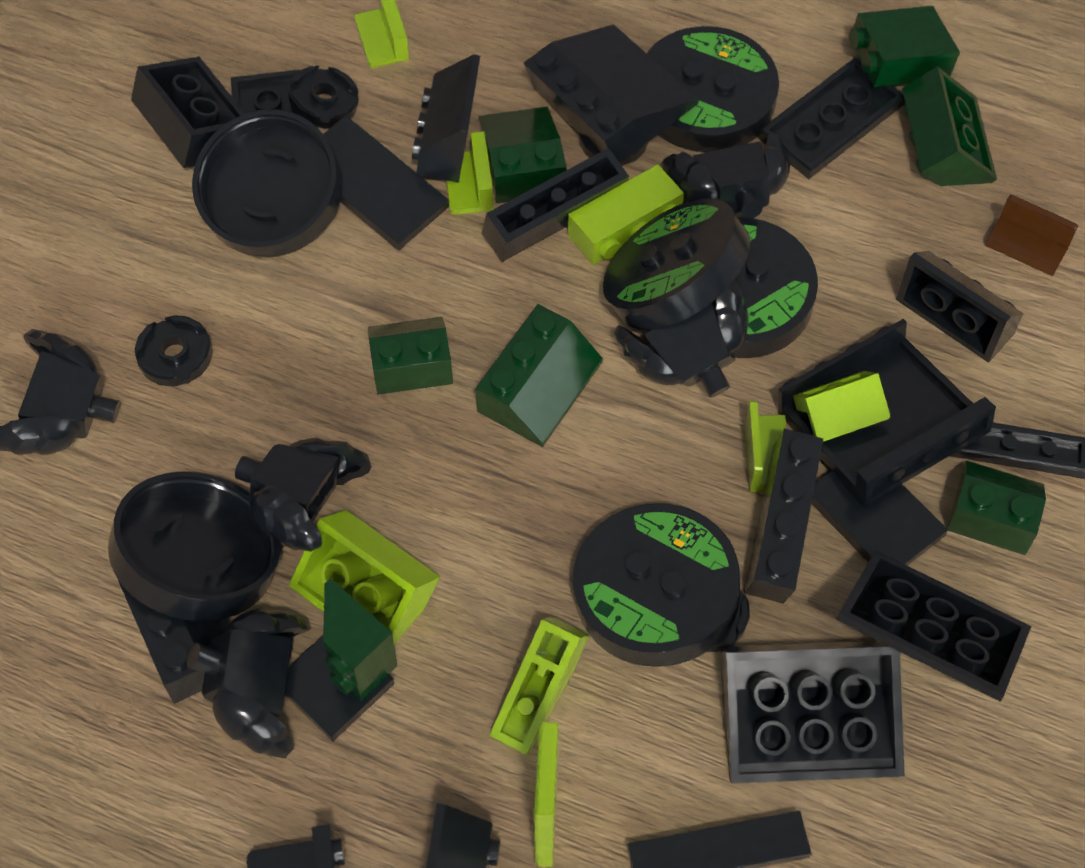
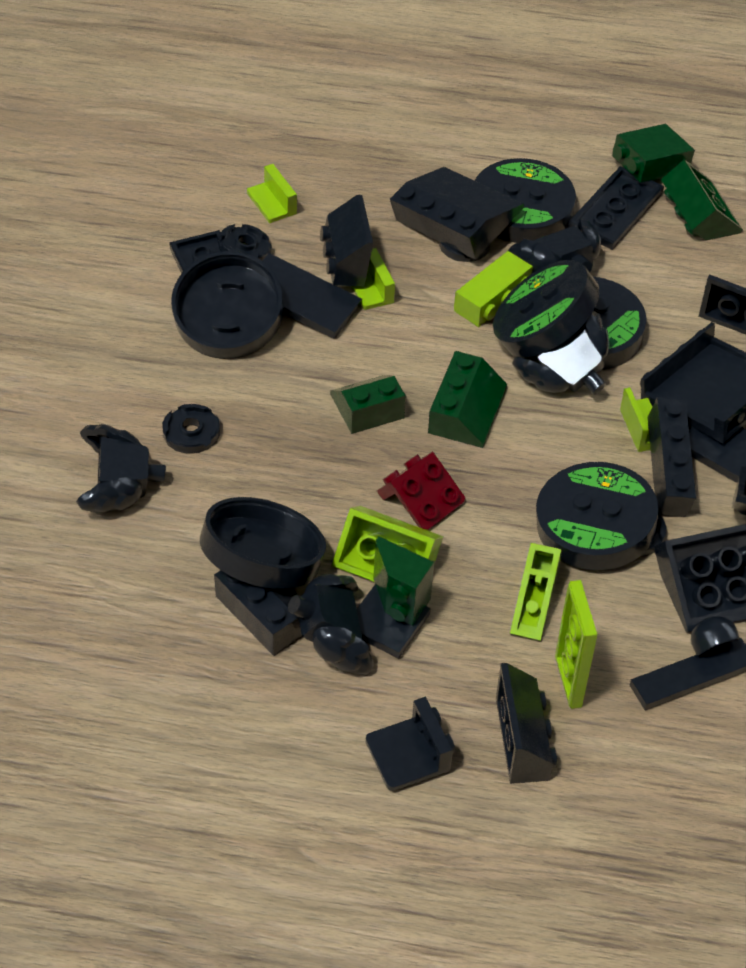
camera: 15 degrees left, 10 degrees down
(183, 104) = (144, 265): black slope -> none
(295, 485) = (320, 493): black torso -> none
(438, 501) = (423, 490): none -> dark red bracket
(521, 150) = (411, 261): dark green slope -> none
(546, 207) = (438, 289): black brick -> none
(758, 804) = (713, 633): none -> black hair
(844, 405) = (690, 380): lime panel -> none

